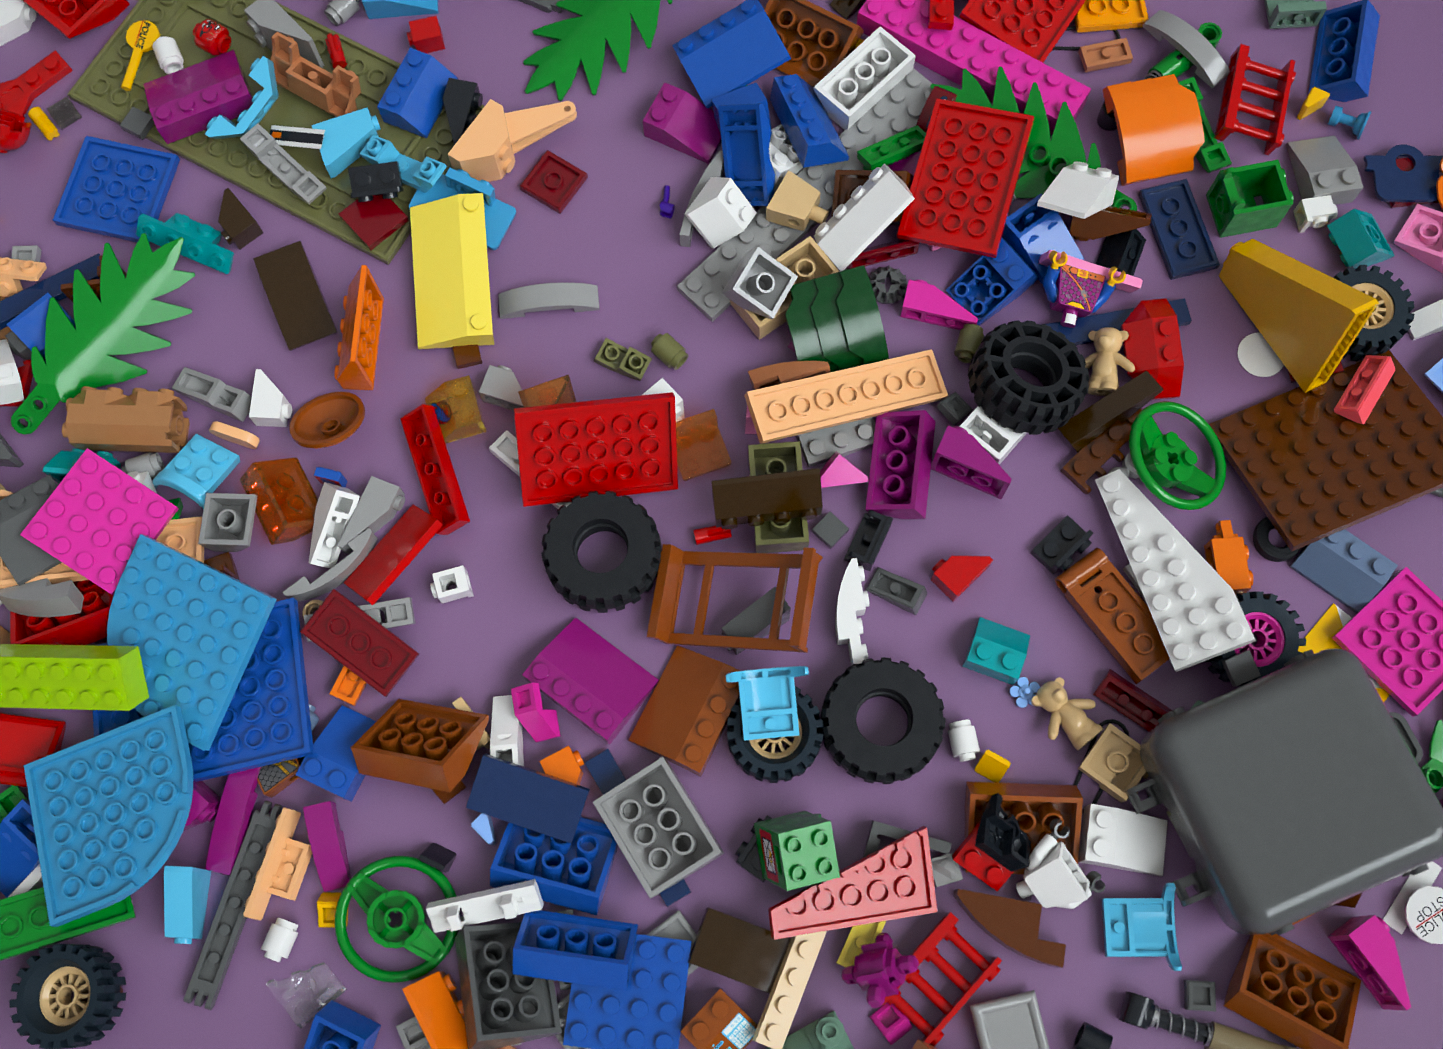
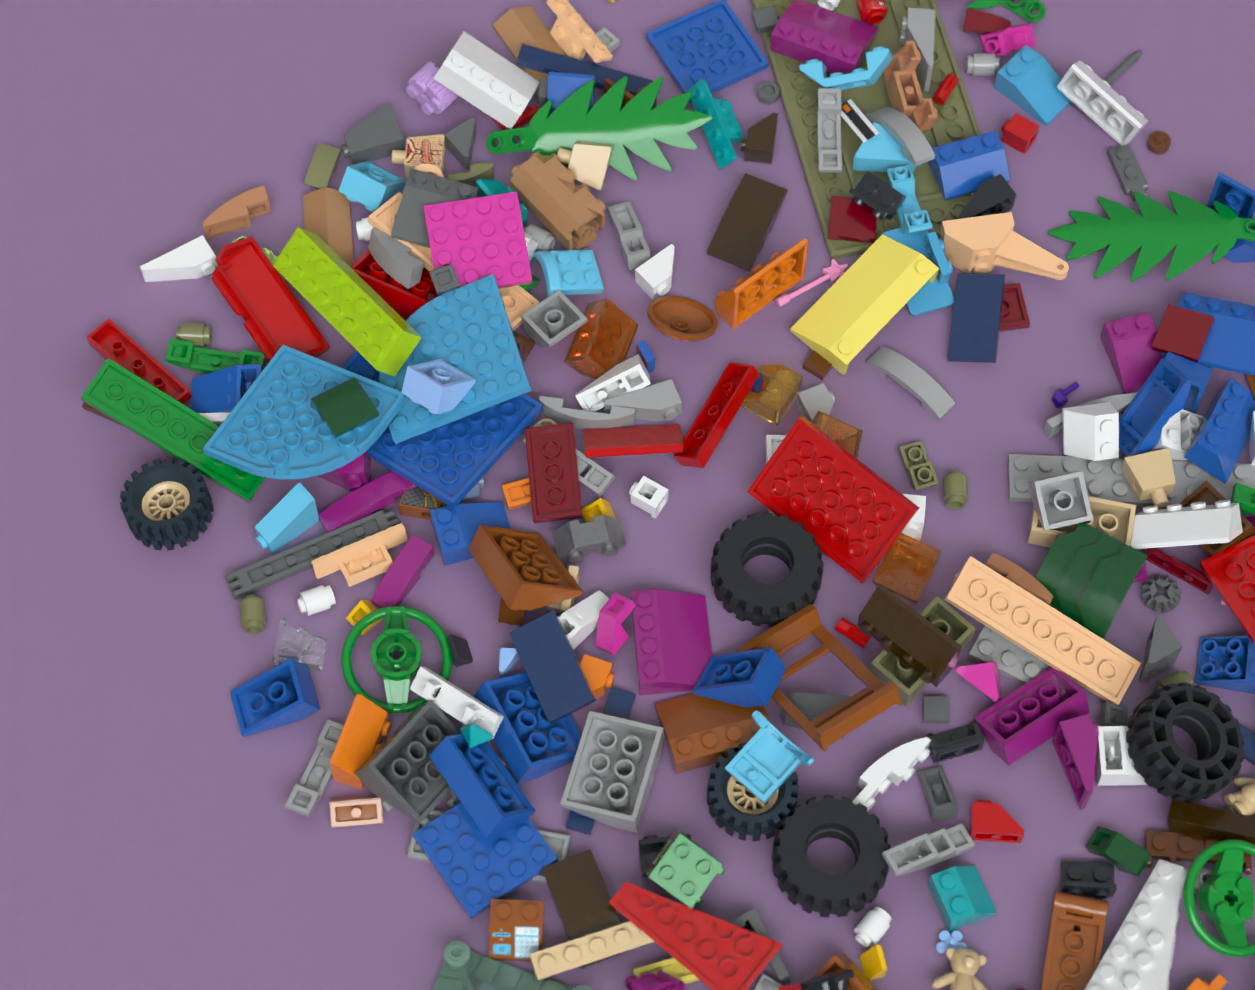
camera: 45 degrees right, 10 degrees down
(35, 459) = (478, 171): none -> olive slope
(103, 577) = (444, 279): none -> dark grey tile
(117, 367) = (588, 161): none -> torso
(136, 769) = (345, 407): none -> dark green slope
(194, 673) = (436, 385): none -> light blue slope
(201, 179) = (767, 92): none -> dark grey tile
(234, 435) = (614, 273): light nougat tile -> none
(240, 1006) = (252, 614): none -> olive brick
(344, 110) = (905, 132): none -> light grey slope
(402, 272) = (833, 272): none -> bright pink piece
(428, 637) = (597, 508): none -> yellow slope
(450, 654) = (600, 536): none -> flat silver brick
(532, 921) = (475, 735): none -> teal slope
(545, 205) = (976, 318): none -> dark blue tile
(675, 655) = (741, 677): none -> blue slope
(707, 74) = (1183, 332): none -> dark red tile
(931, 305) = (1179, 624): dark pink slope -> none
(934, 327) = (1160, 651): none -> dark grey slope
(944, 643) = (928, 850): none -> light grey slope
(1061, 501) = (1120, 850): none -> dark green slope

